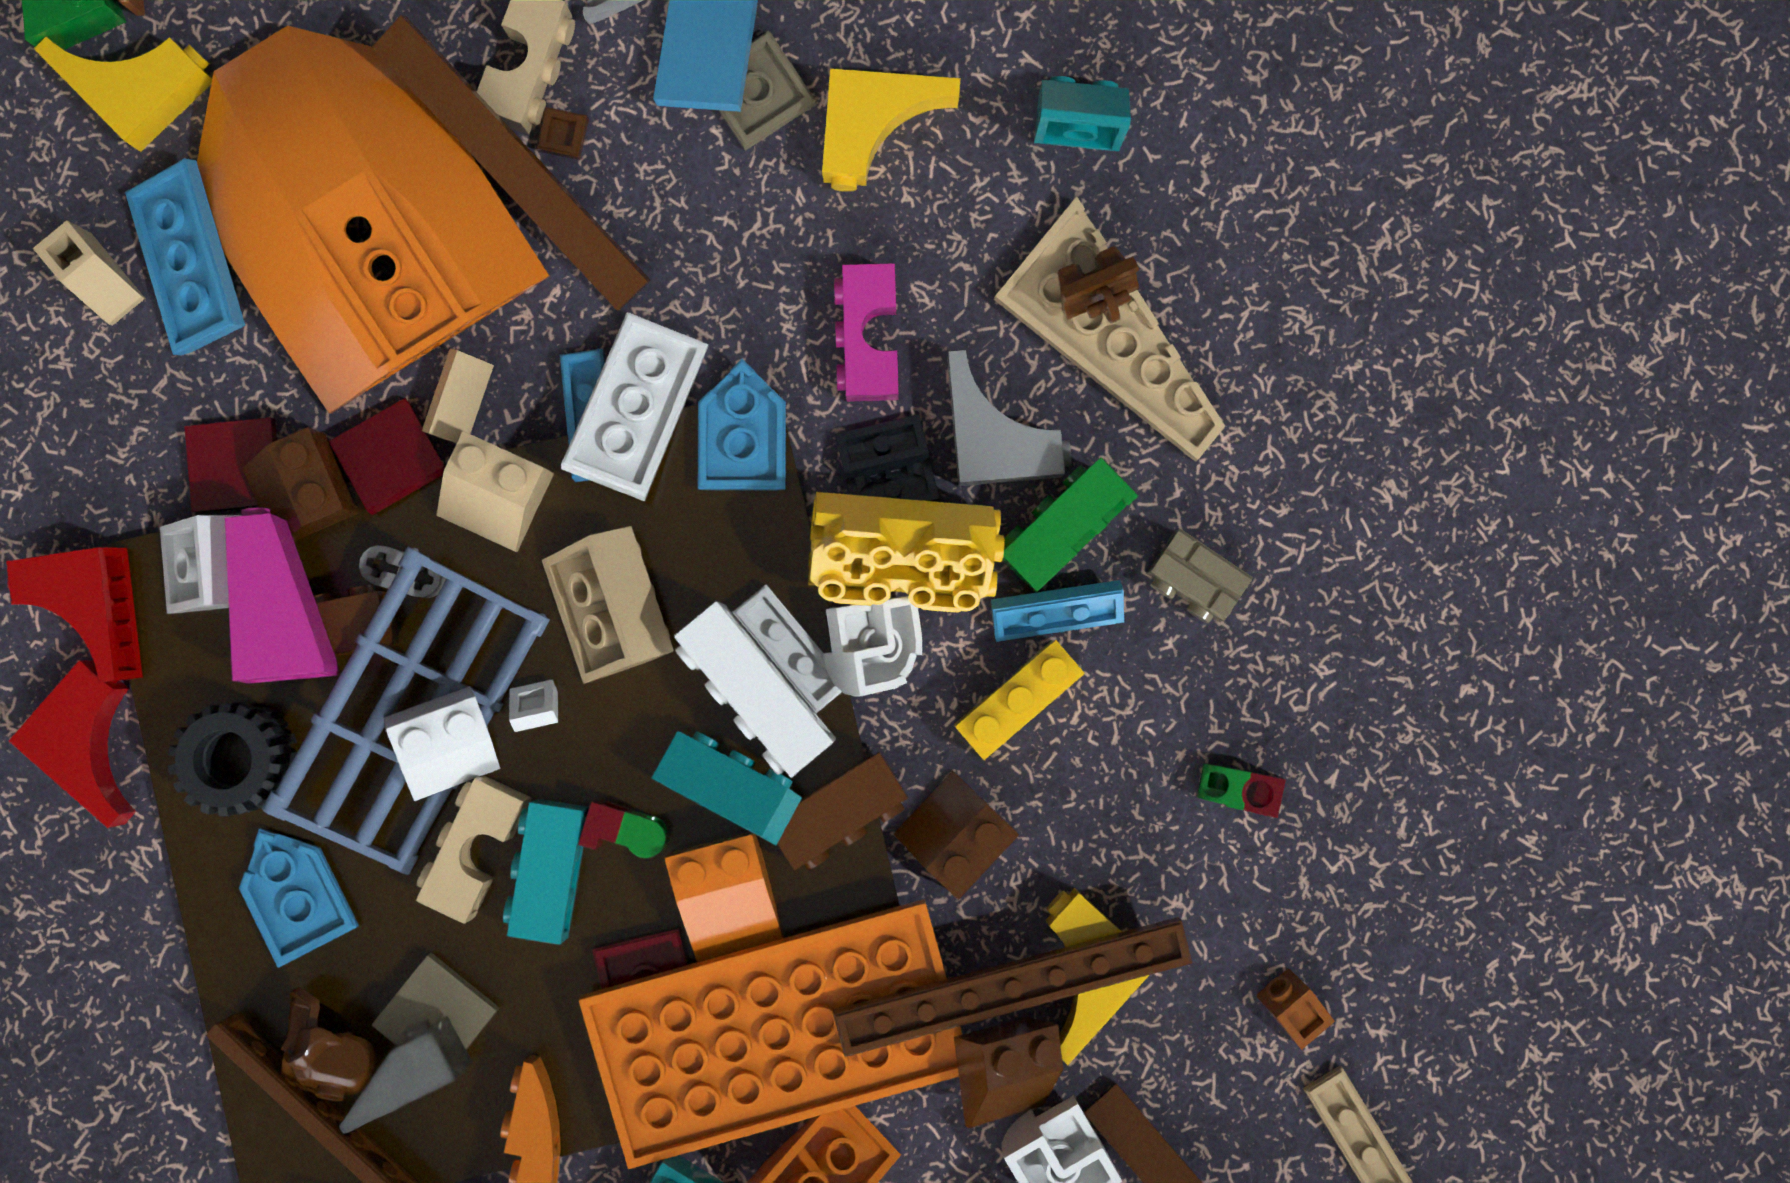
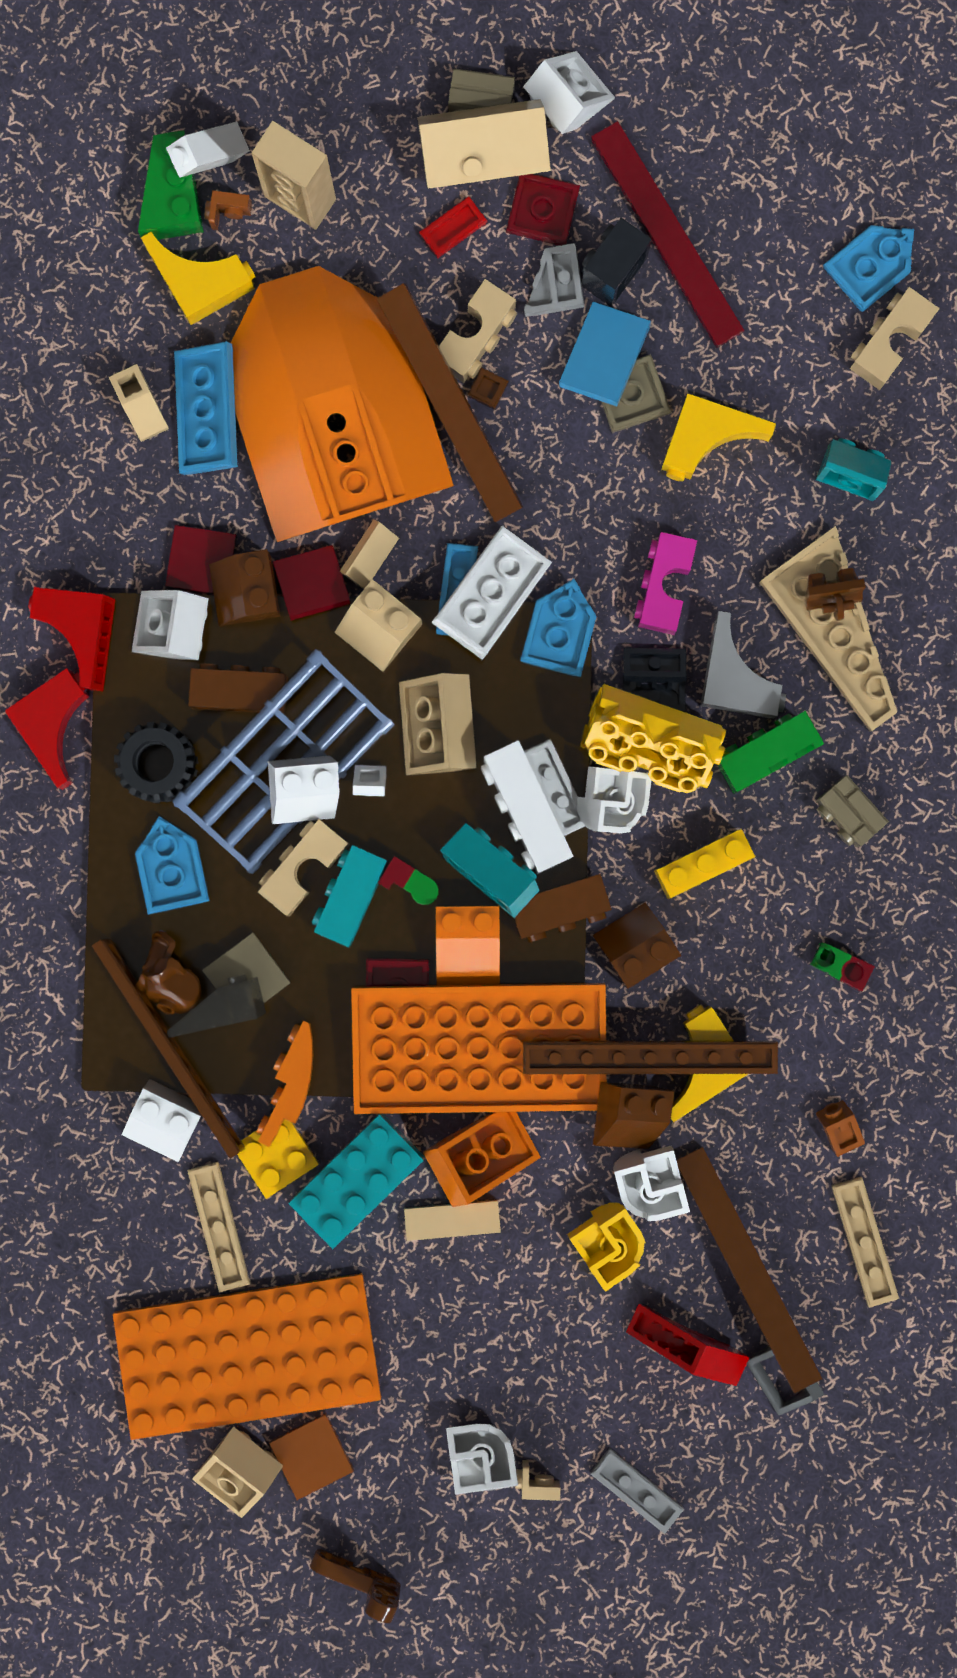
camera: 20 degrees right, 0 degrees up
(271, 604) = (213, 667): dark pink slope -> none
(386, 578) = (291, 668): light grey beam -> none
(1058, 610) = (747, 810): dark azure tile -> none

